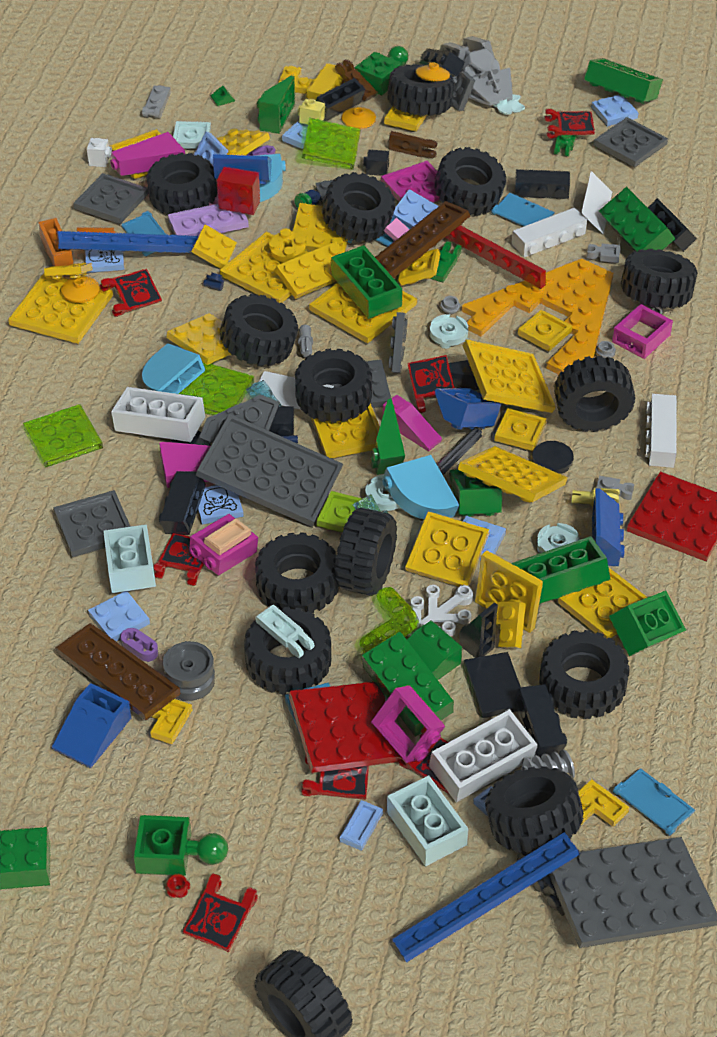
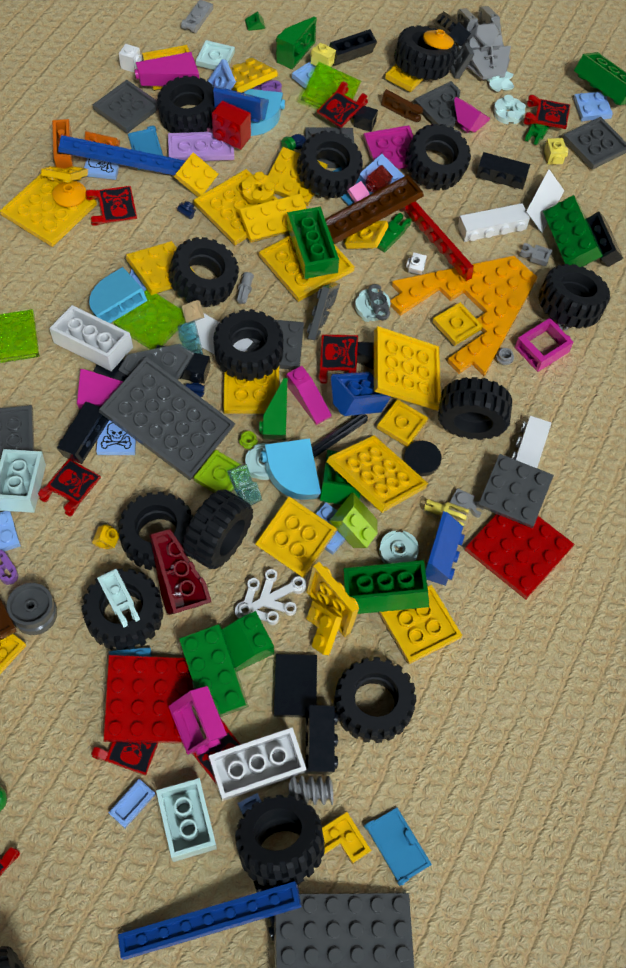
camera: 10 degrees right, 15 degrees up
(227, 536) = (106, 481): light nougat tile -> none
(227, 560) = (109, 498): dark pink window -> none
(242, 593) = (105, 537): none -> yellow plate
(259, 370) = (193, 311): none -> tan plate
(301, 84) = (323, 22): yellow plate -> none
(325, 81) = (350, 24): yellow brick -> none
(336, 605) = (178, 579): none -> dark red wedge
(347, 72) = (368, 22): reddish brown hinge -> none
(348, 156) = (341, 108): none -> flag
(359, 117) = (365, 67): light orange dish -> none
(361, 476) = (248, 435): none -> lime plate
(377, 67) = (395, 20): green brick -> none
(395, 623) = (228, 603): clear neon green beam -> none
(415, 212) = (378, 179): none -> clear red brick
(450, 304) = (382, 278): light grey plate -> none
(452, 134) = (439, 104): none -> dark grey plate
(454, 318) = (374, 296): none -> dark grey piece
(479, 634) = (294, 634): black slope -> none
(482, 284) = (416, 263): none -> white plate
(489, 140) = (469, 116): none -> dark pink slope
(505, 525) = (355, 522): none -> lime slope
(521, 210) = (471, 193): dark azure door -> none
(527, 129) = (509, 103): none -> light aqua plate
(590, 156) = (555, 151): none -> light yellow brick
(647, 623) = (449, 659): green slope -> none
(662, 461) = (516, 490): none -> dark grey plate

